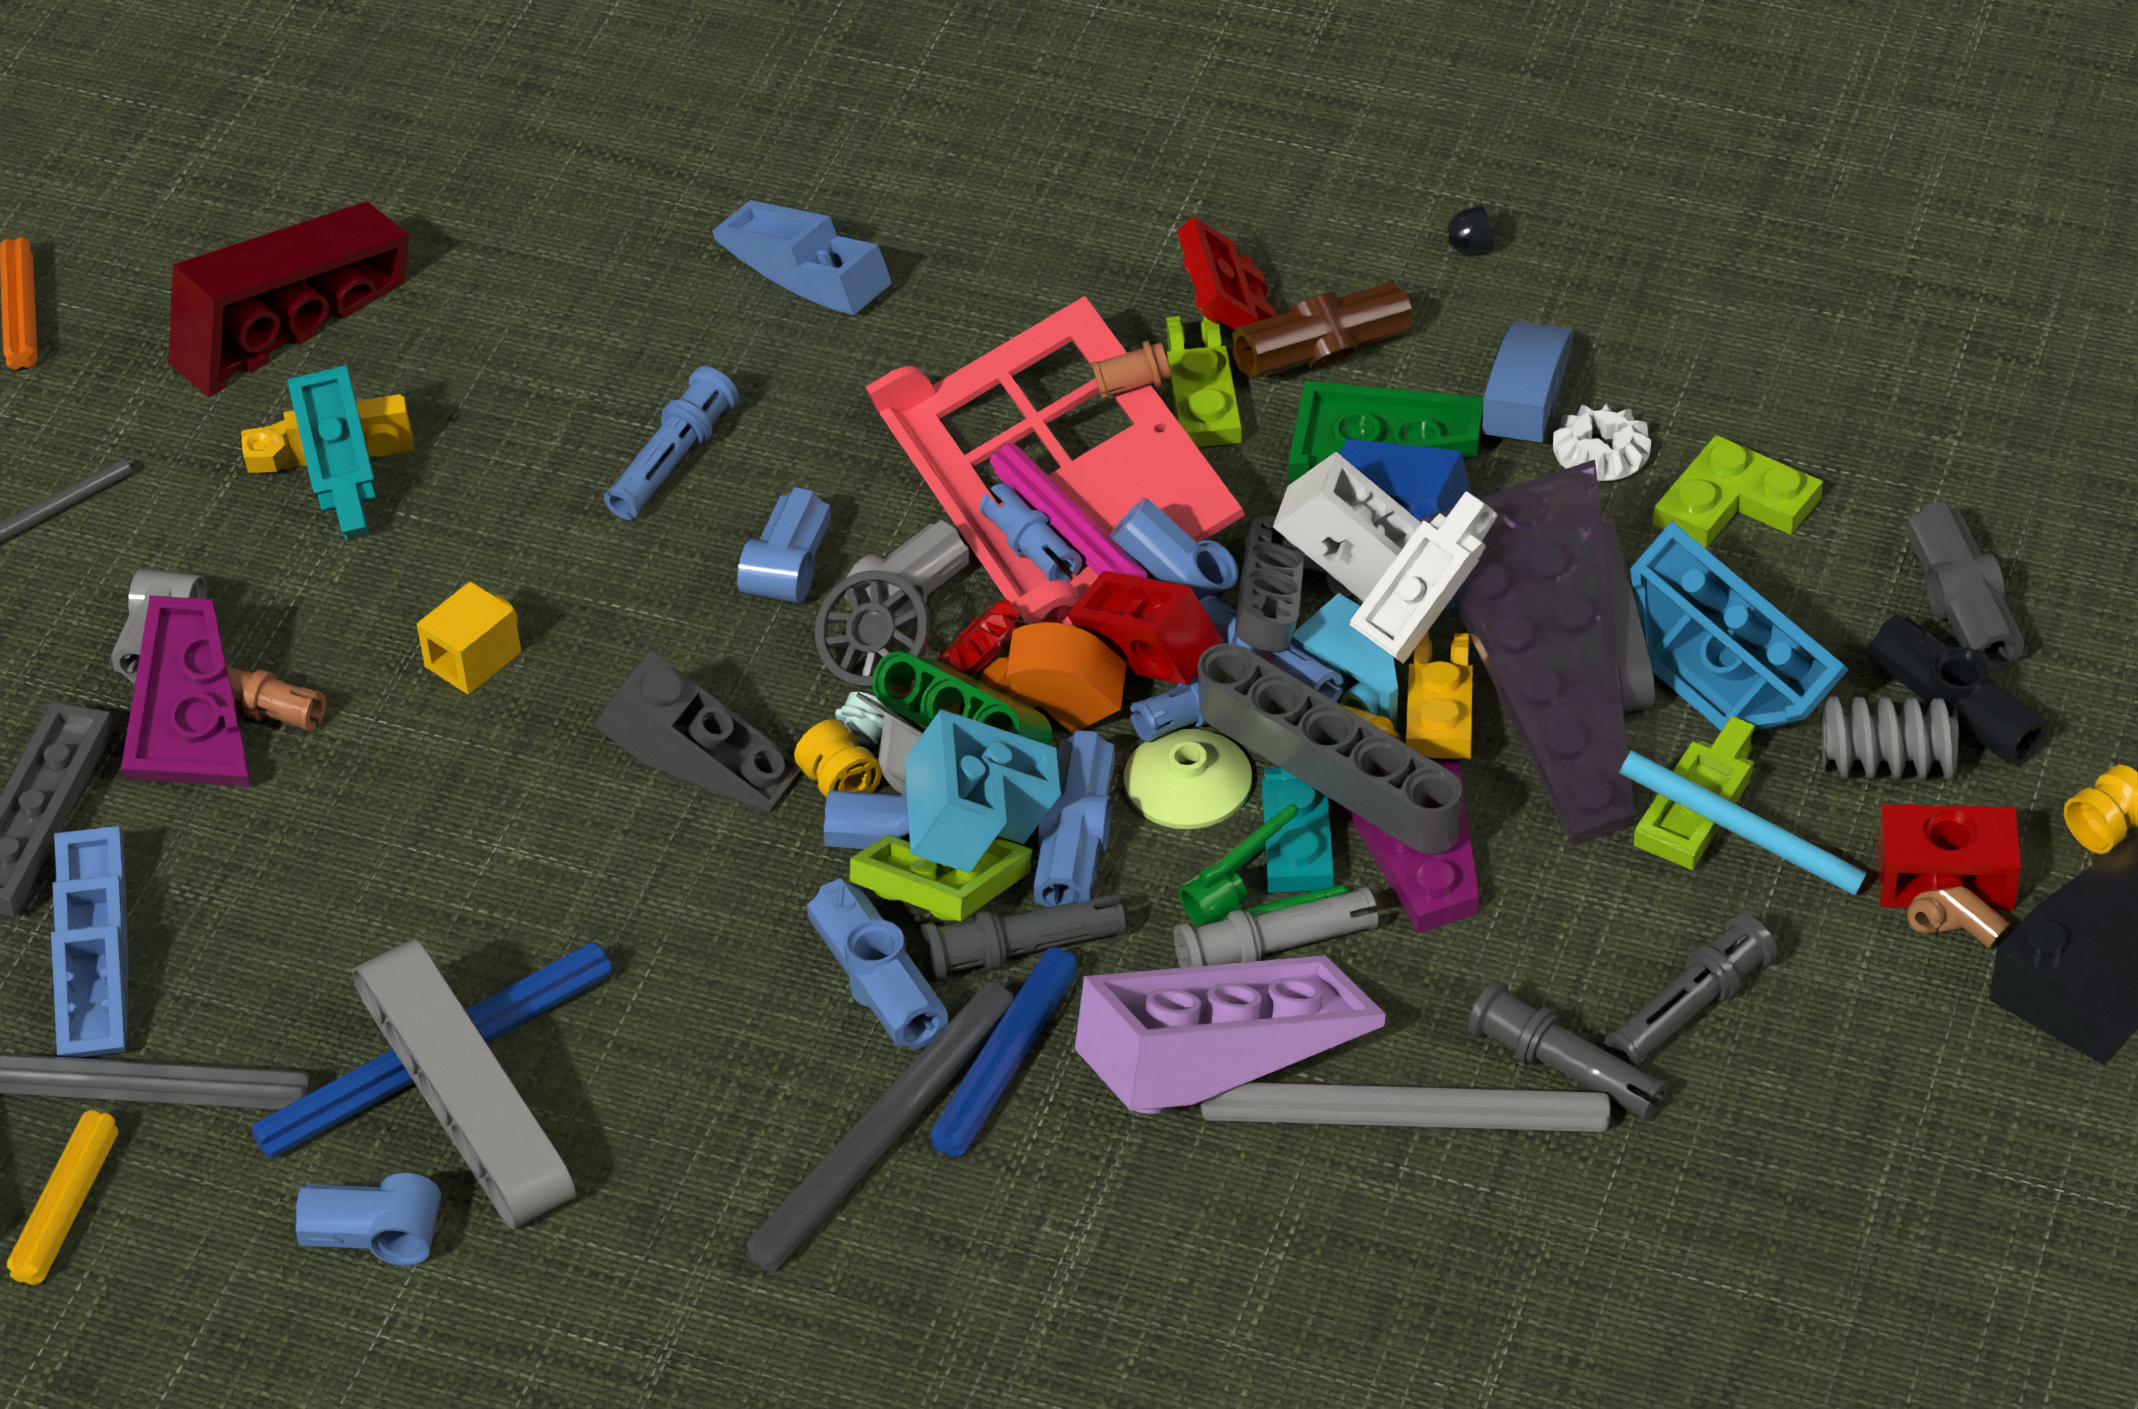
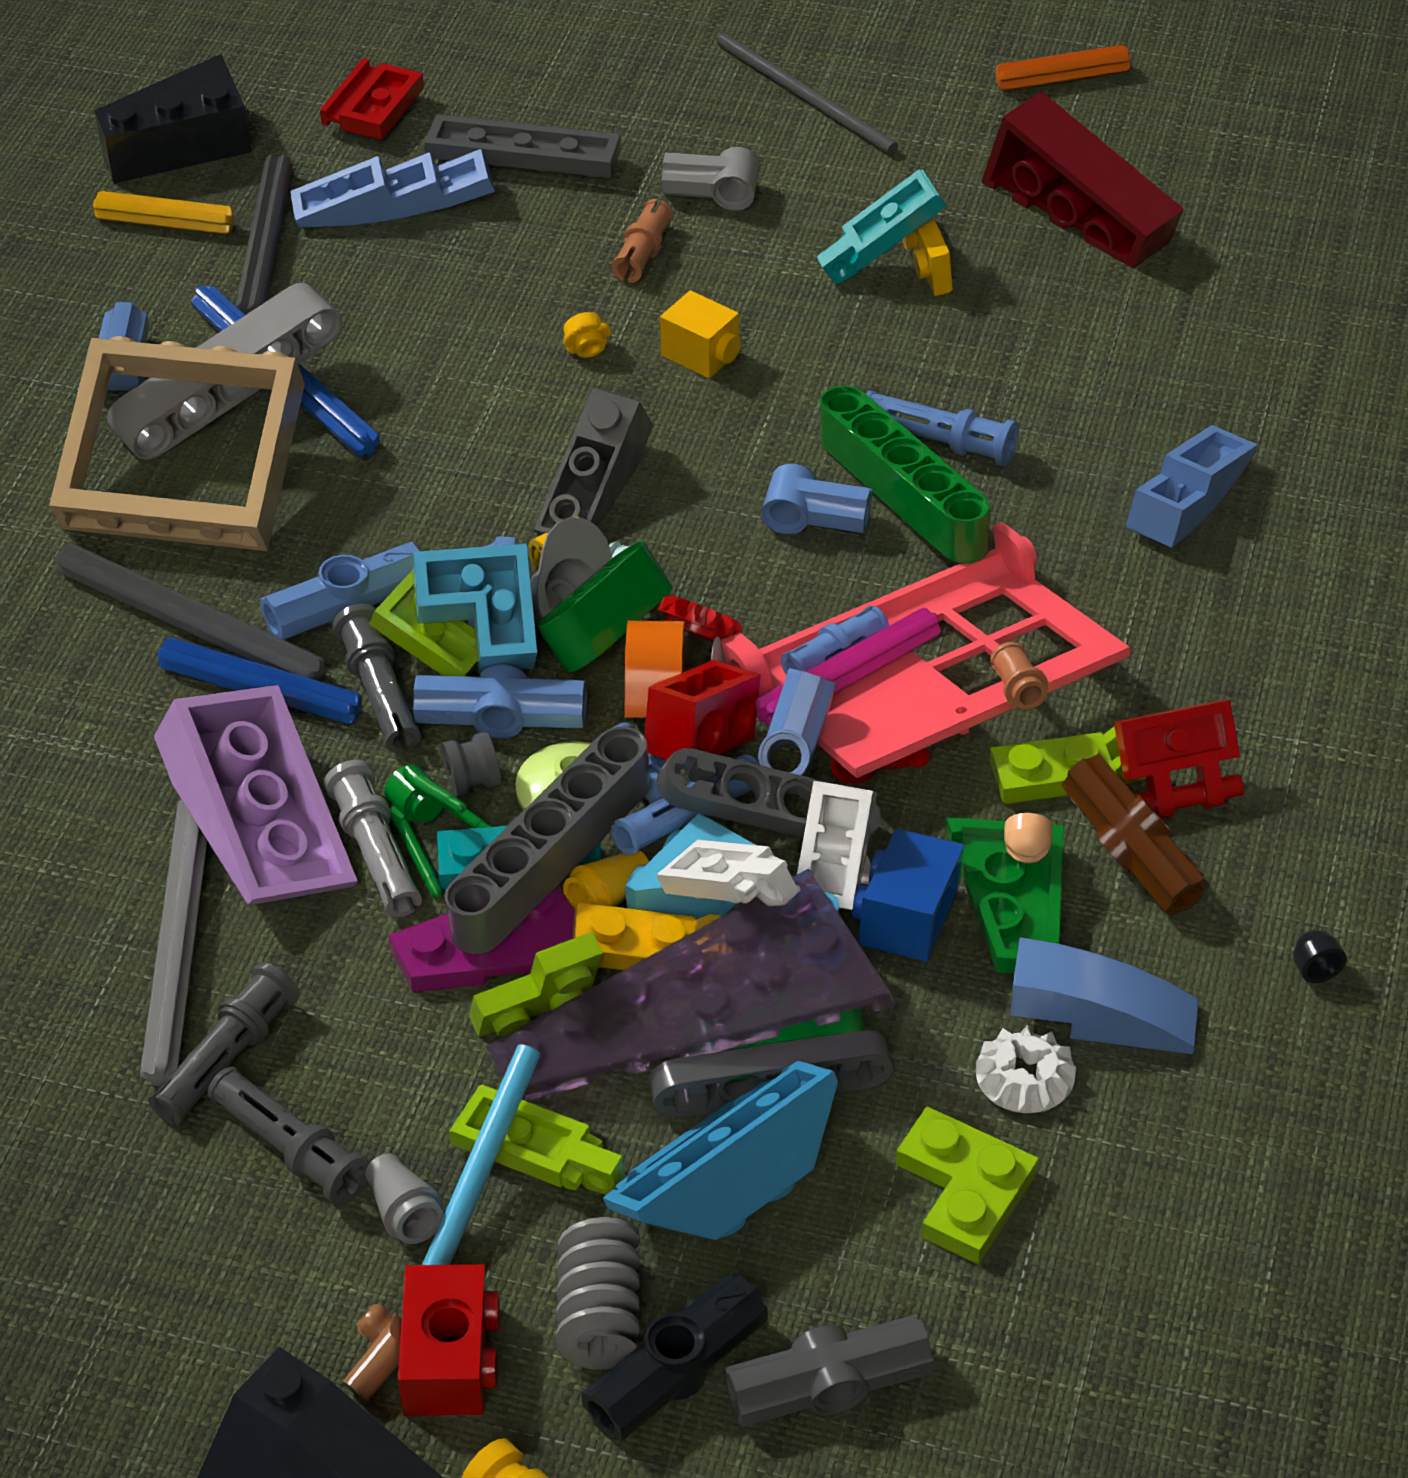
camera: 85 degrees right, 0 degrees up
(183, 700) = (619, 191): magenta wing -> none
(439, 747) = (586, 334): none -> yellow plate
(574, 1203) = (173, 518): none -> tan window
(761, 464) = (905, 474): none -> green beam
(871, 625) = (712, 555): dark grey wheel -> none
(922, 561) = (778, 570): light grey piece -> none
(1173, 844) = (471, 764): none -> dark grey wheel
(1341, 394) = (1028, 837): none -> light nougat hinge
(1507, 771) = (554, 979): none -> lime plate
(1778, 892) = (405, 1202): none -> light grey cone

